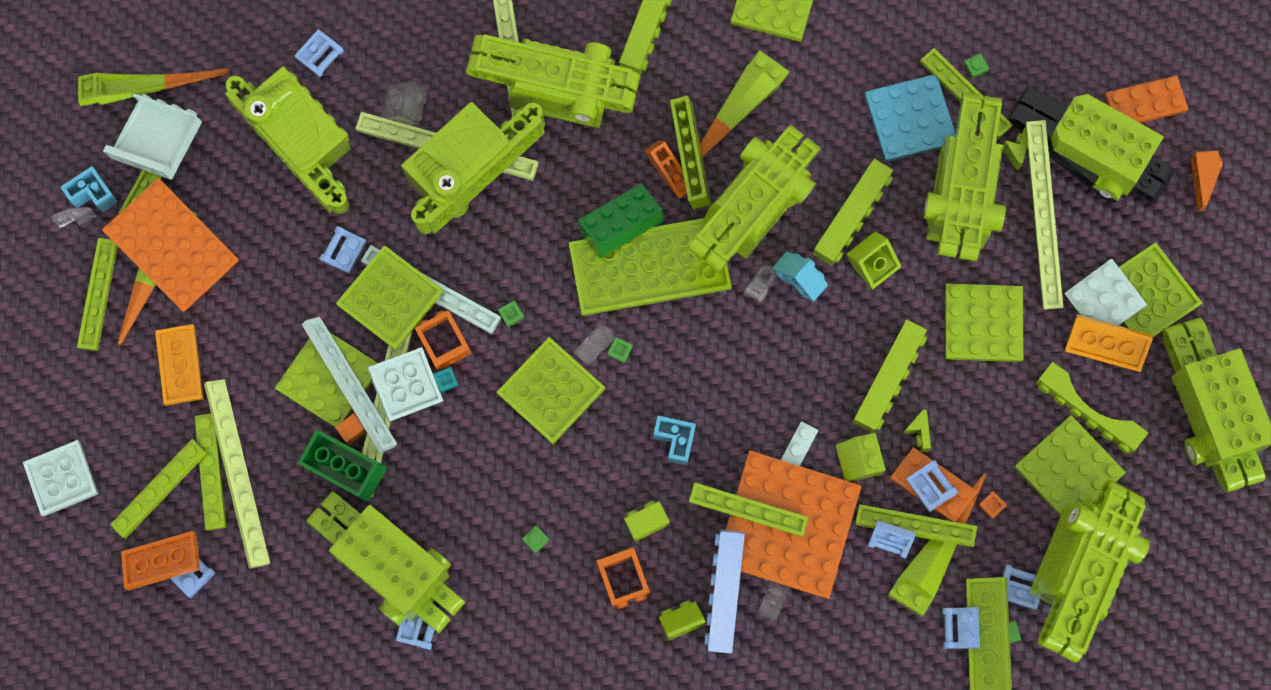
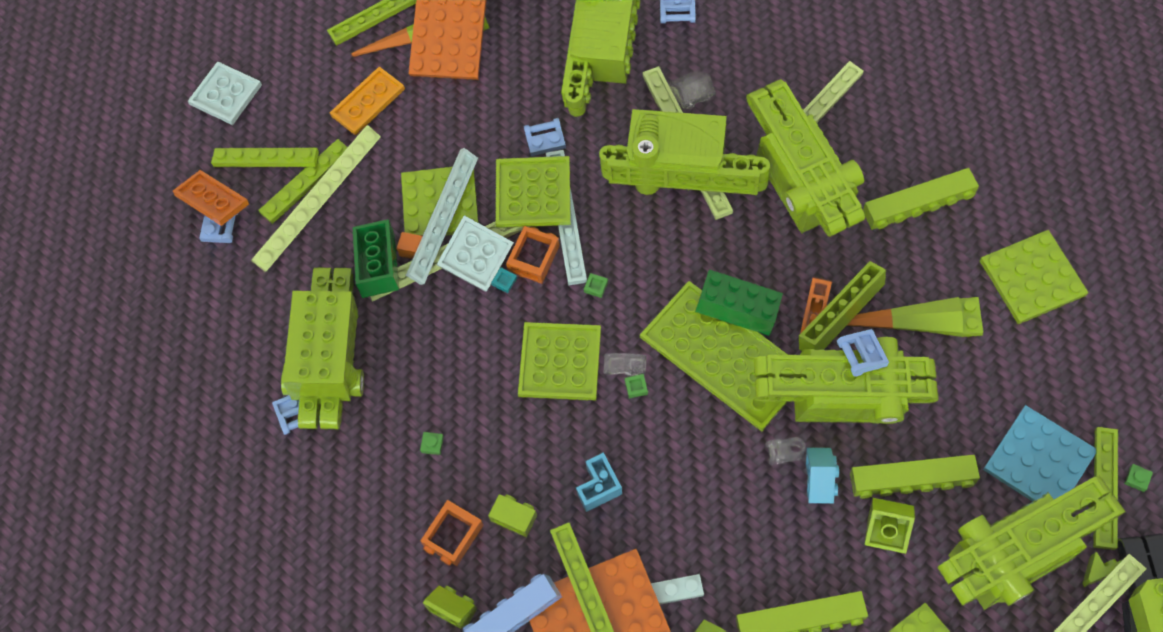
camera: 55 degrees right, 10 degrees down
(752, 163) = (868, 348): none -> light blue plate

